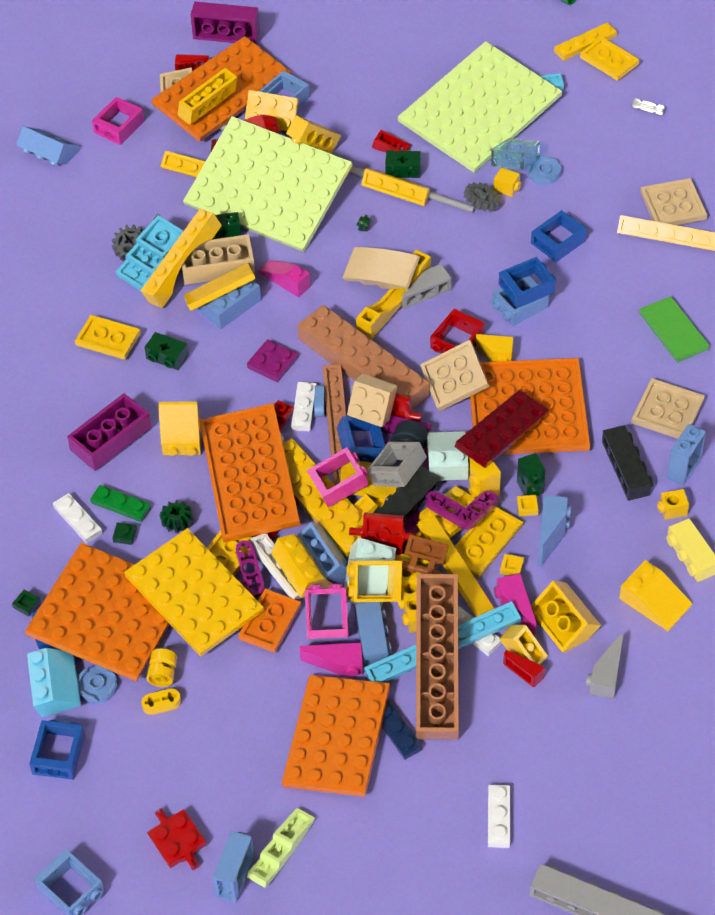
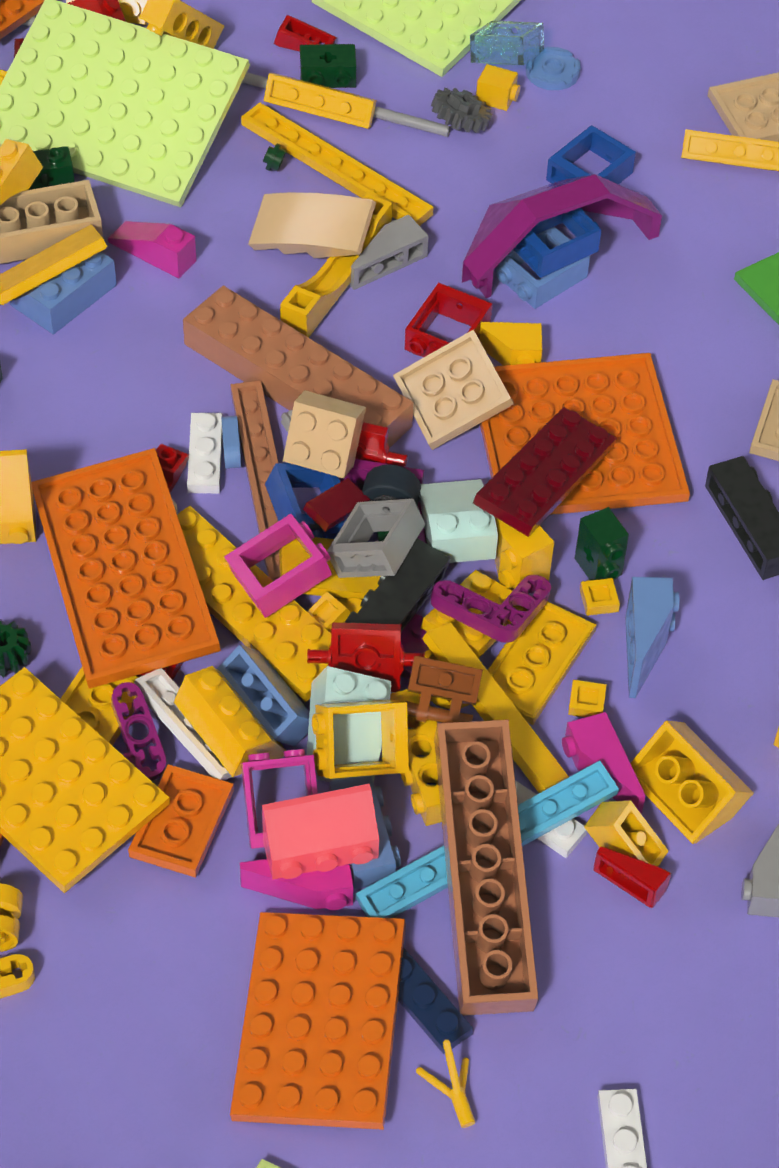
camera: 10 degrees left, 0 degrees up
(272, 360) = (144, 381): magenta plate -> none
(345, 631) = (320, 832): none -> coral slope
(375, 442) = (334, 504): none -> dark red tile
(400, 228) = (333, 162): none -> yellow plate
(409, 778) = (456, 1094): none -> yellow plant
(504, 268) = (515, 217): none -> magenta panel

